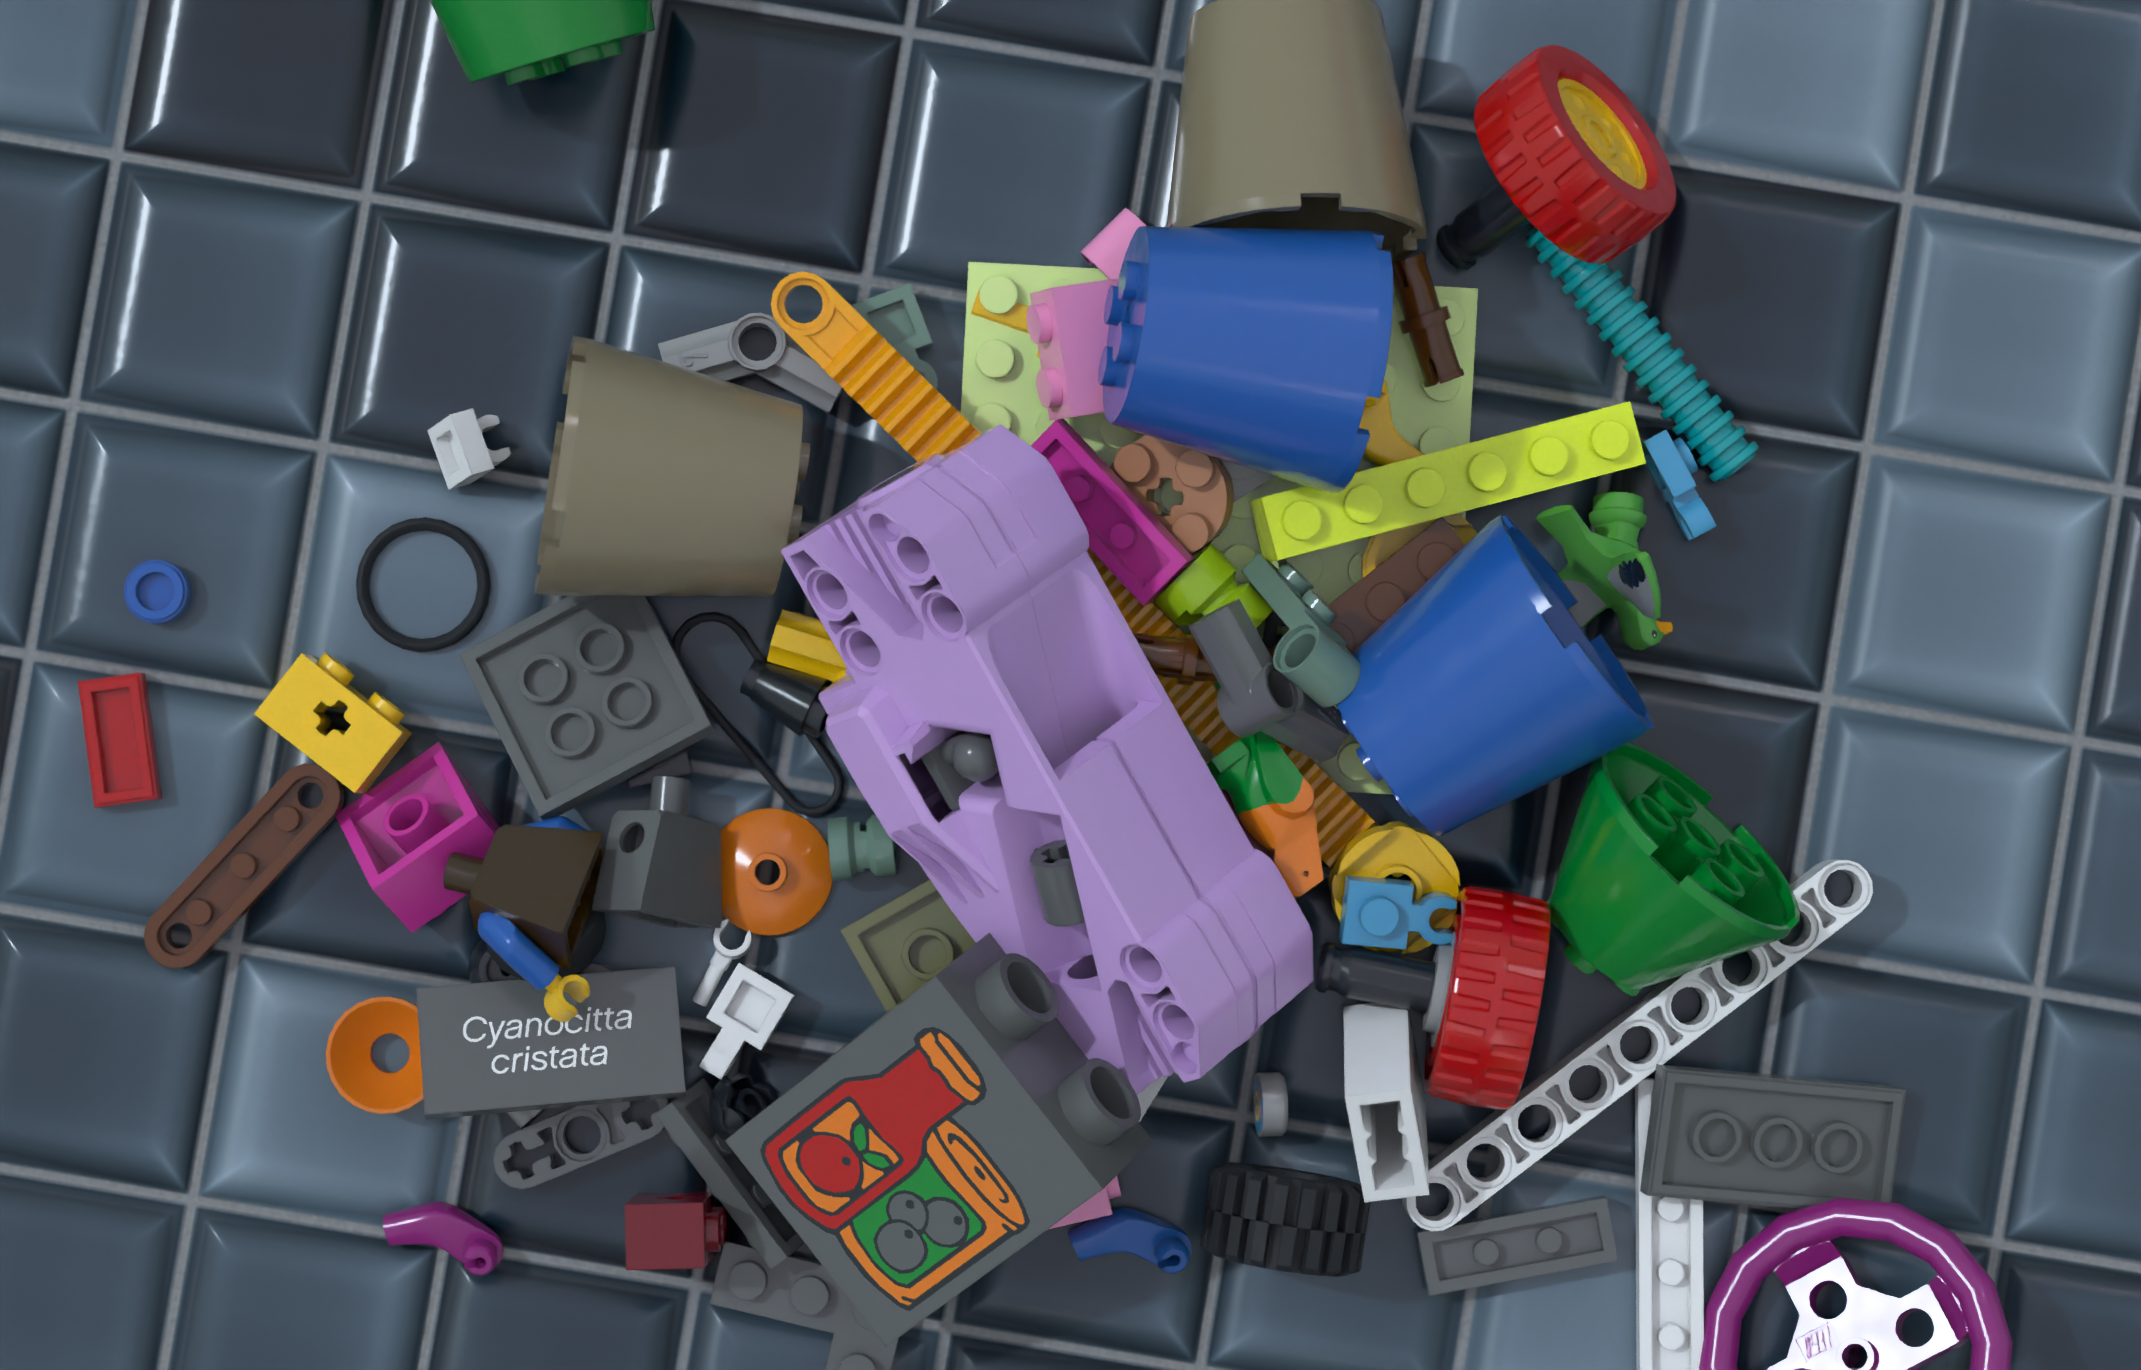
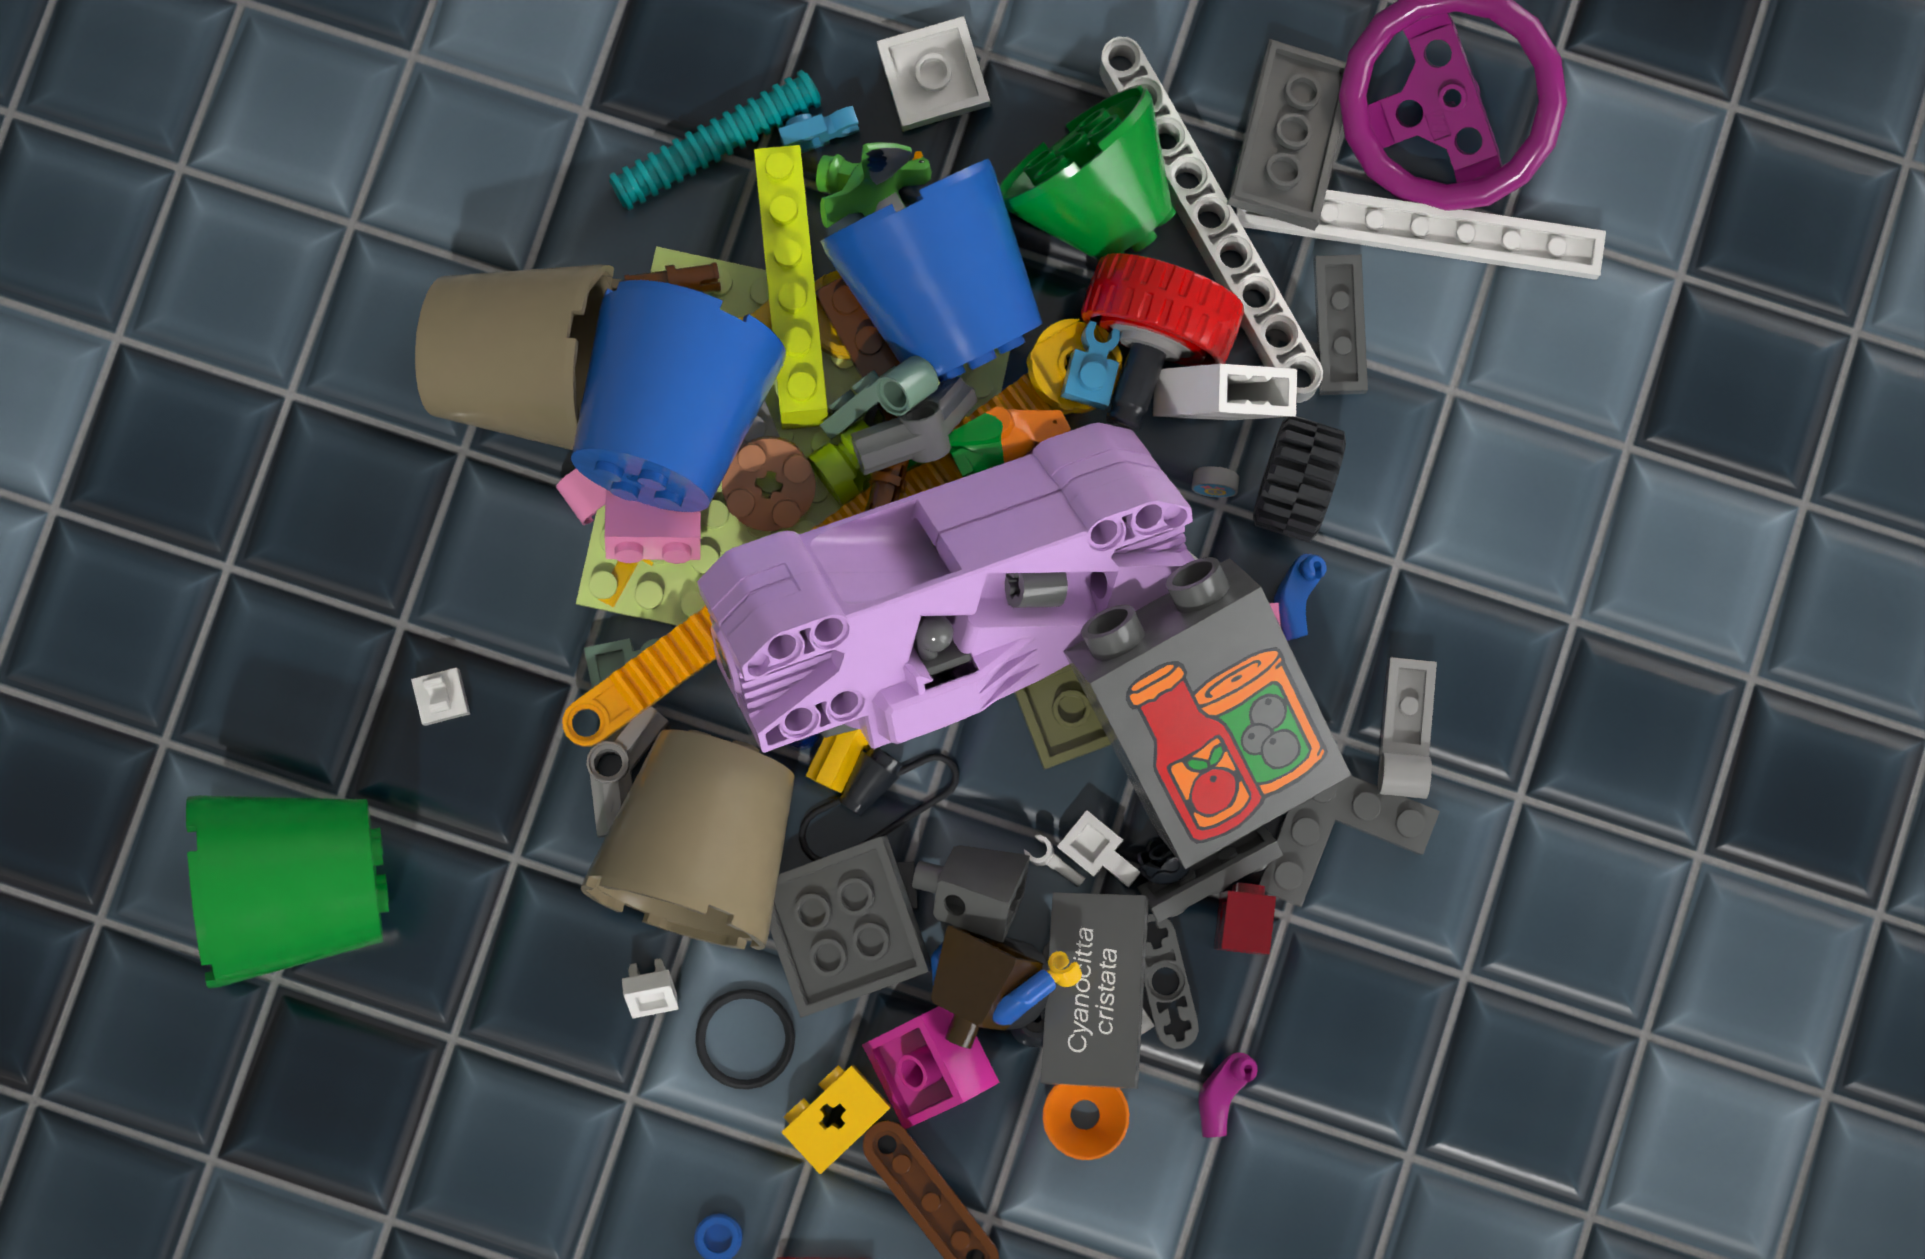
camera: 80 degrees left, 5 degrees down
(803, 866) = (998, 790): orange dish -> none
(817, 101) = (440, 696): none -> white tile
(860, 847) = (986, 744): sand green wheel -> none
(1118, 523) = (796, 509): dark pink plate -> none
(1566, 160) = (575, 164): red wheel -> none
(1783, 630) = (933, 73): none -> white plate

